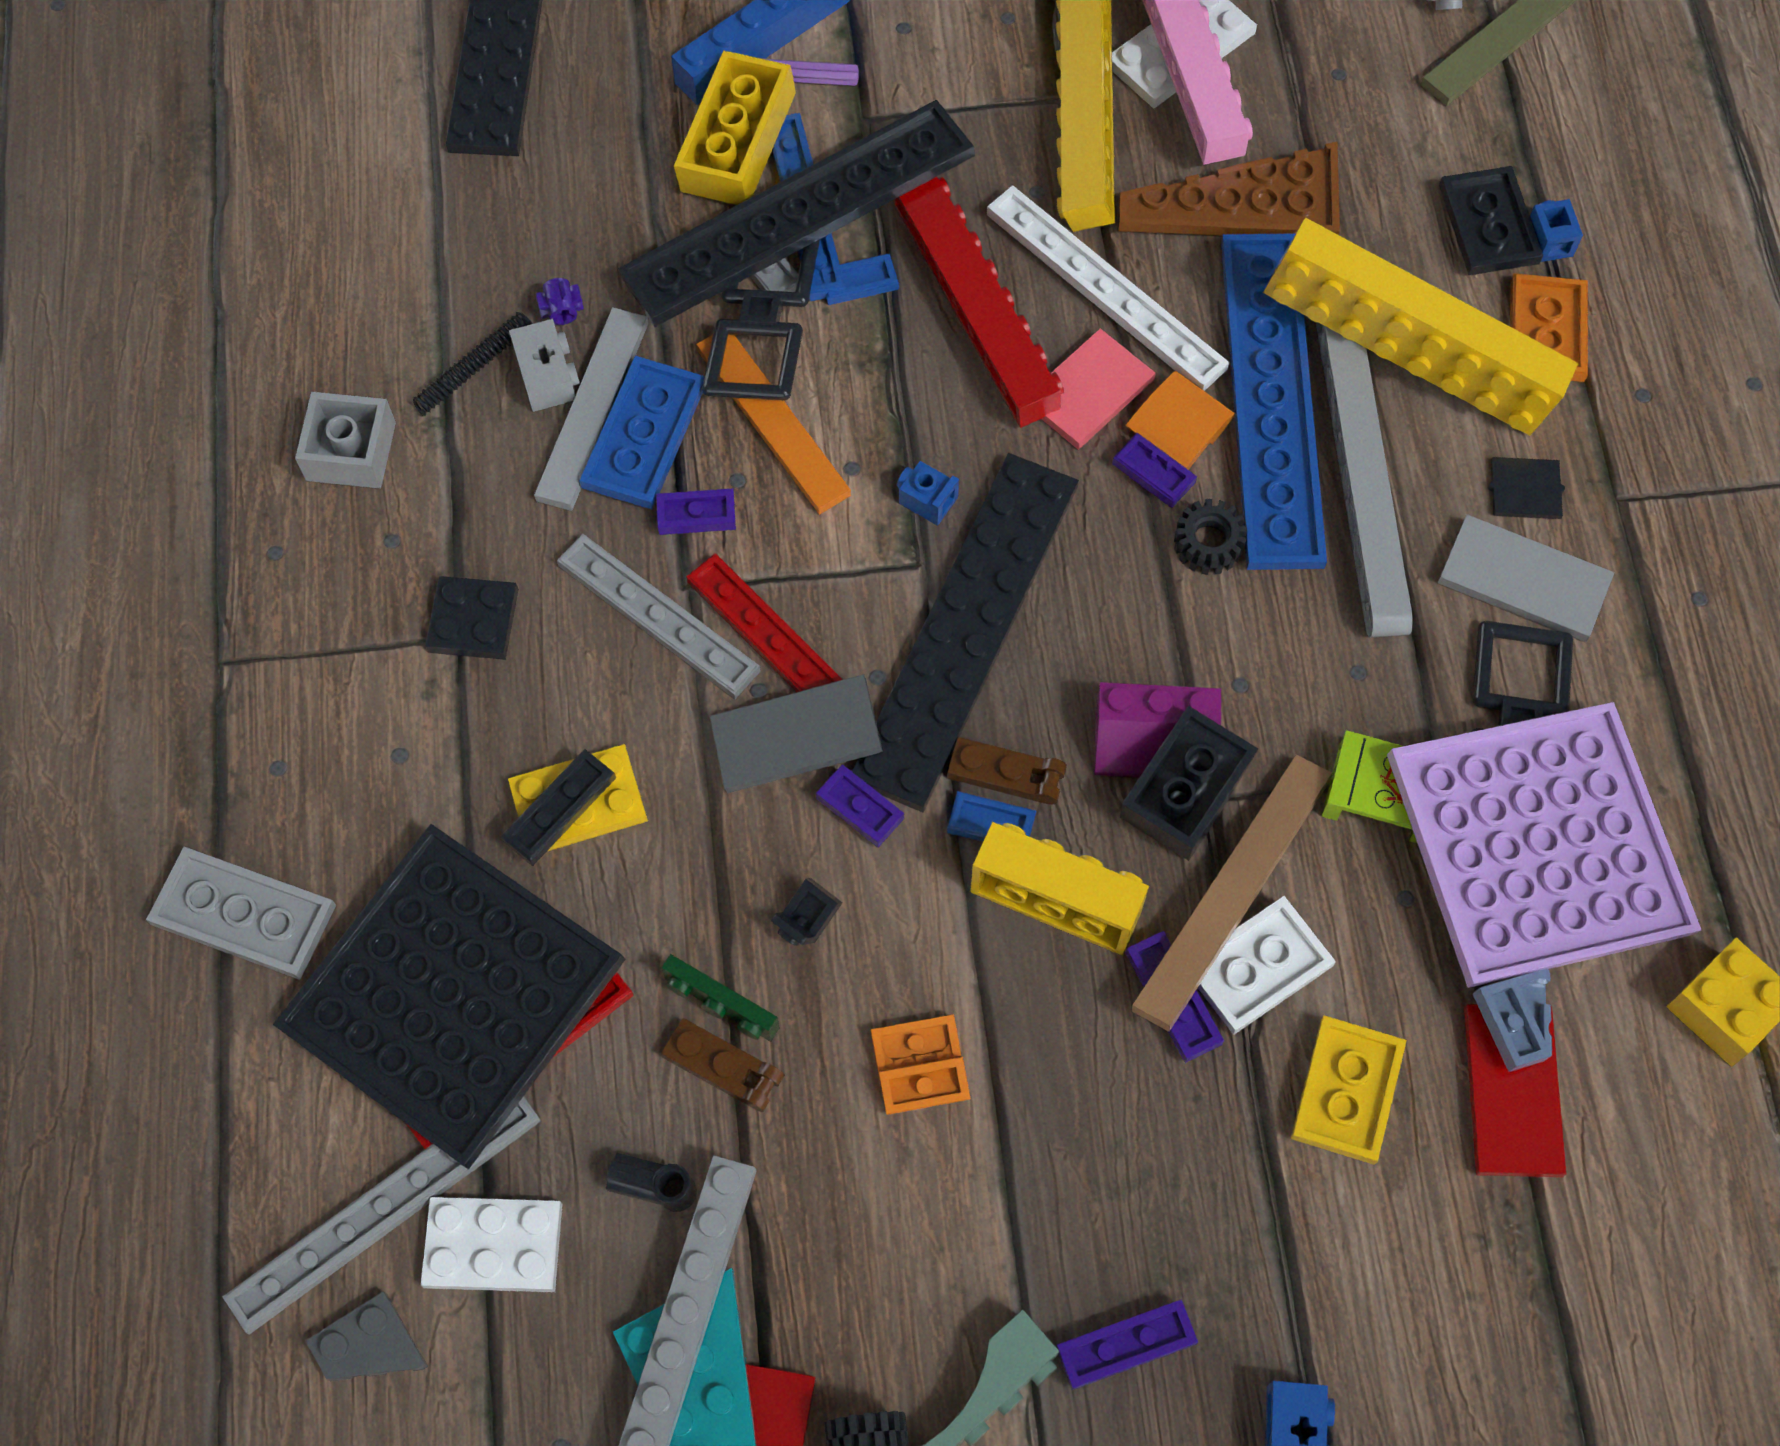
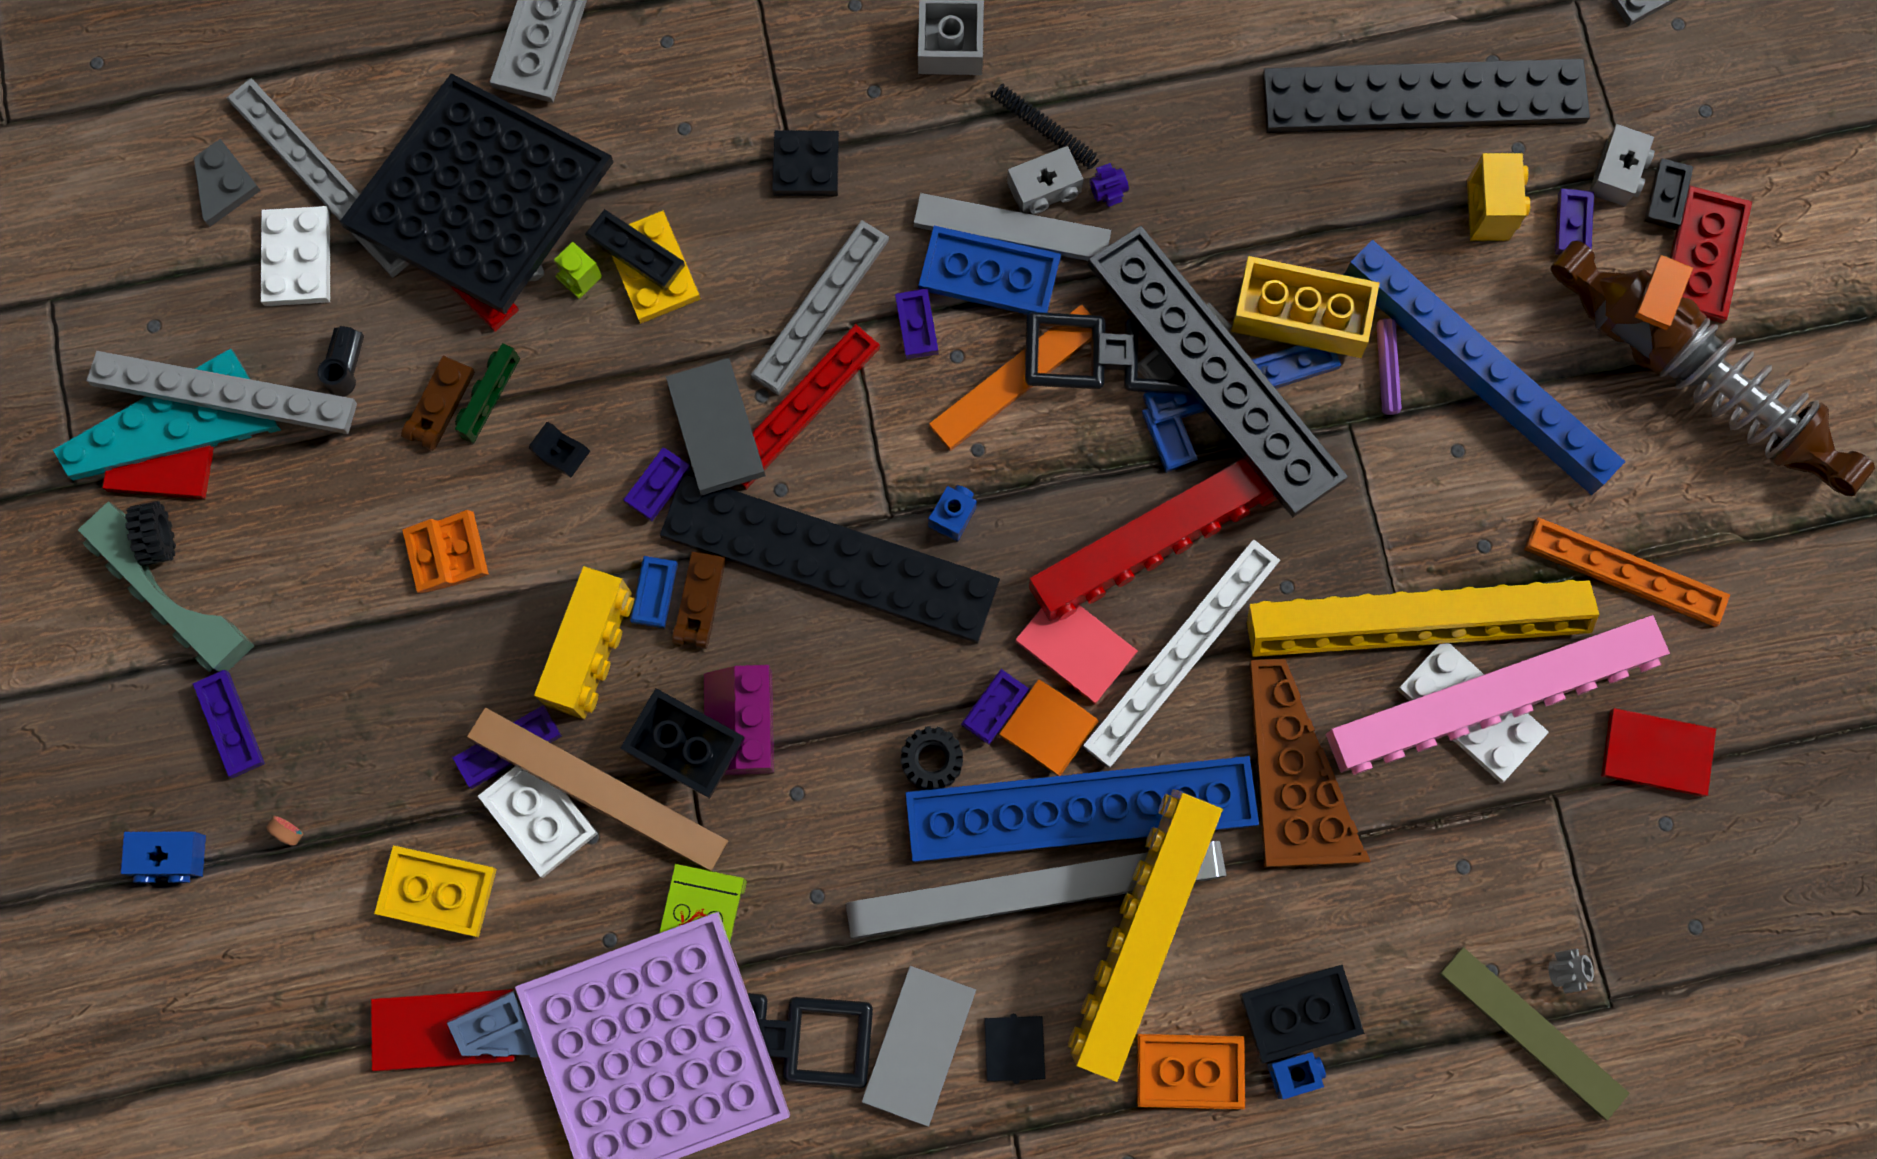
camera: 85 degrees right, 10 degrees up
(572, 881) = (576, 270): none -> lime brick
(1269, 1273) = (284, 831): none -> nougat tile

